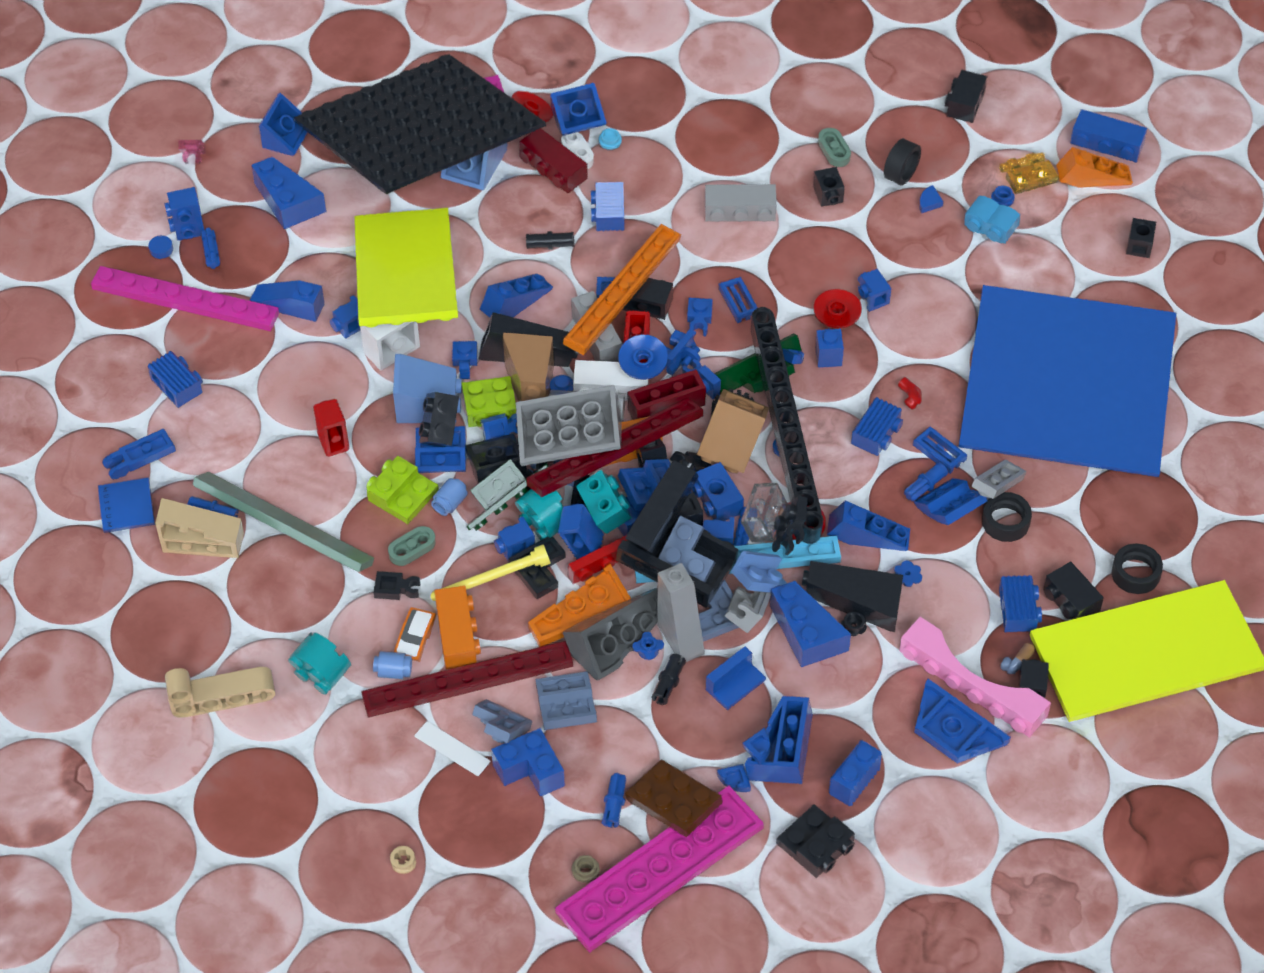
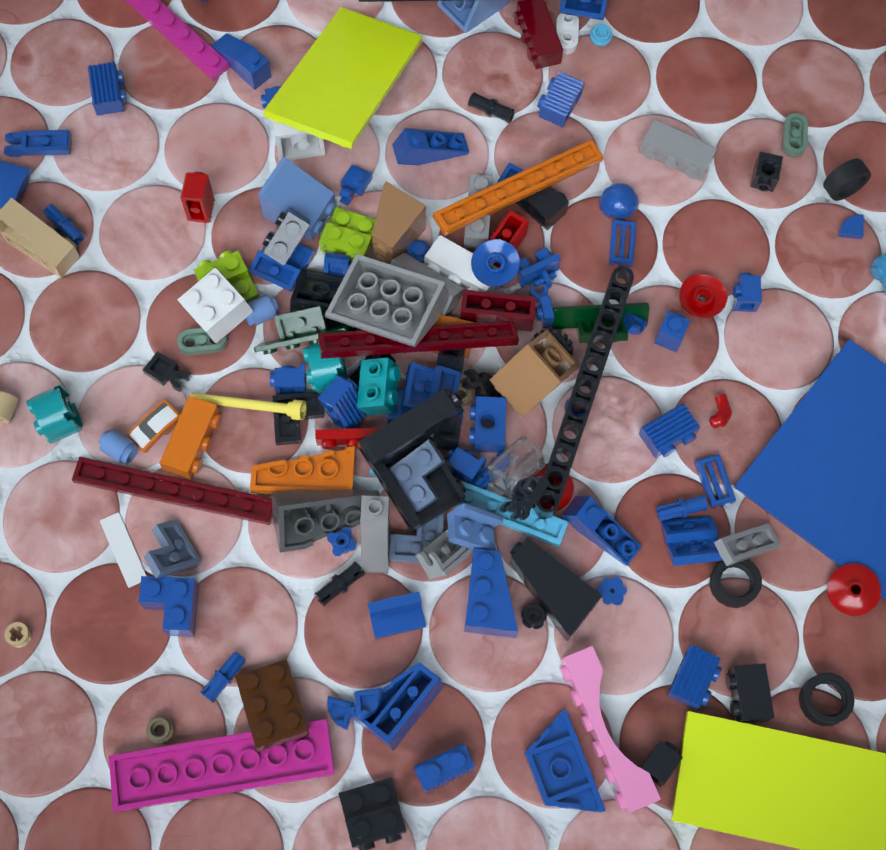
camera: 25 degrees right, 15 degrees up
(283, 521) = (113, 265): sand green tile -> none
(411, 504) = (215, 305): none -> white brick
(492, 341) = (403, 180): black slope -> none
(566, 700) = (242, 556): sand blue slope -> none
(700, 313) = (578, 240): blue plate -> none
(714, 266) = (619, 201): none -> blue hair
(1014, 665) = (663, 734): arm -> none
(1105, 487) = (840, 589): none -> red dish

